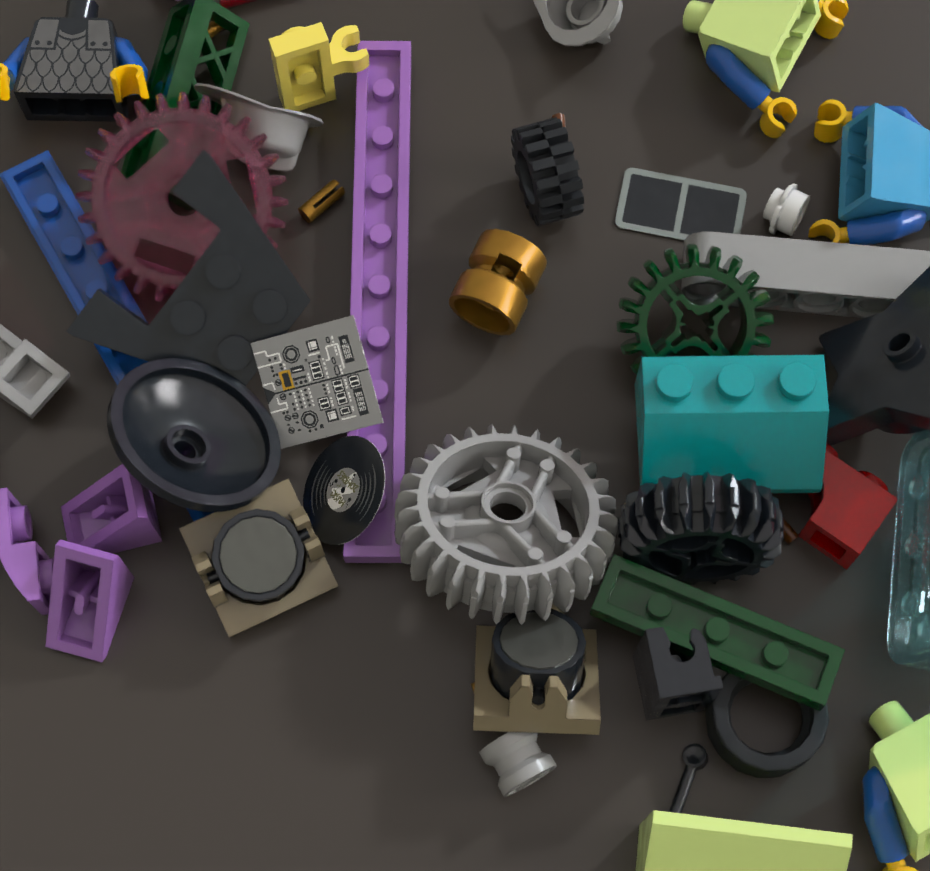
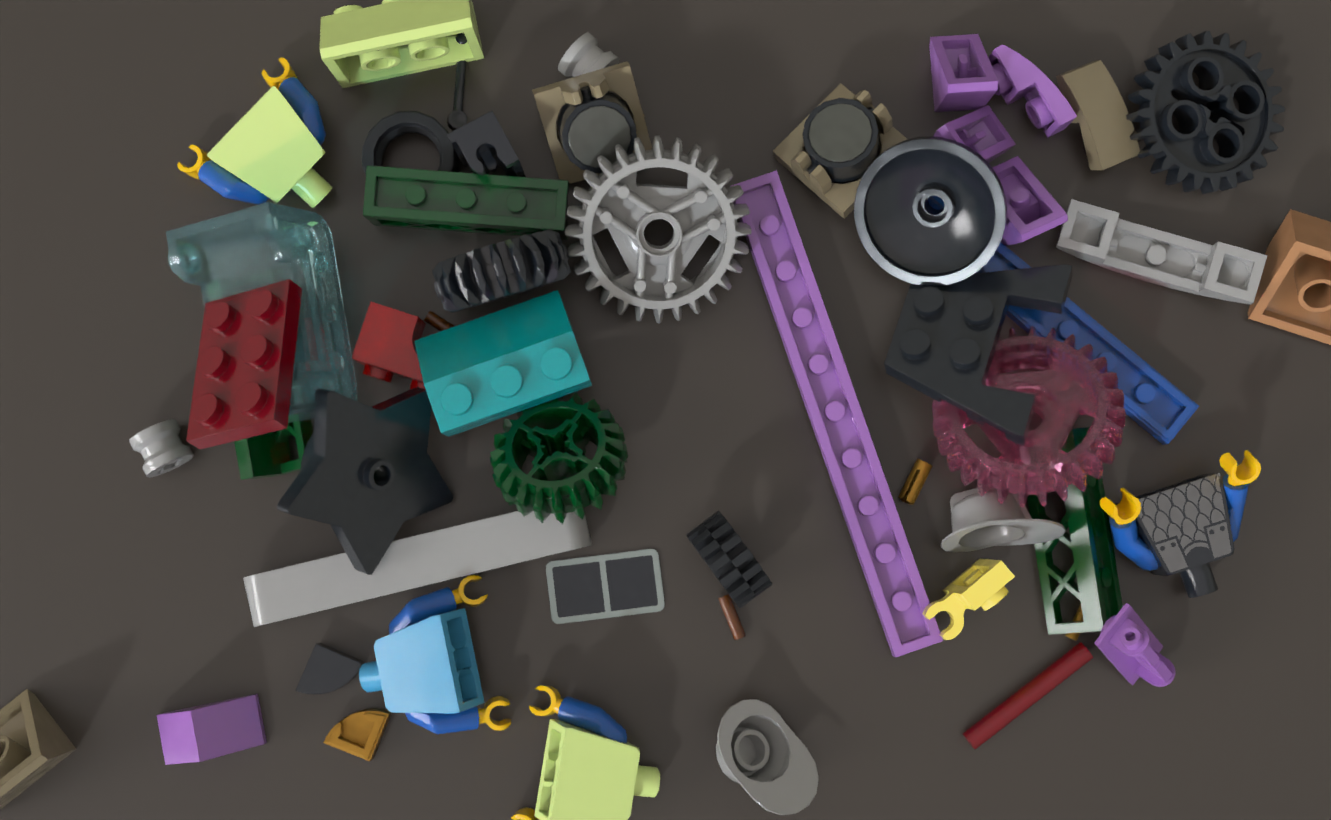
camera: 160 degrees right, 15 degrees up
(80, 416) = (1029, 204): none -> medium lavender slope
(317, 382) = (851, 298): light grey sticker -> none
(344, 489) = (796, 222): black sticker -> none
(499, 278) = (736, 427): pearl gold wheel -> none
(786, 209) = (513, 608): white plate -> none

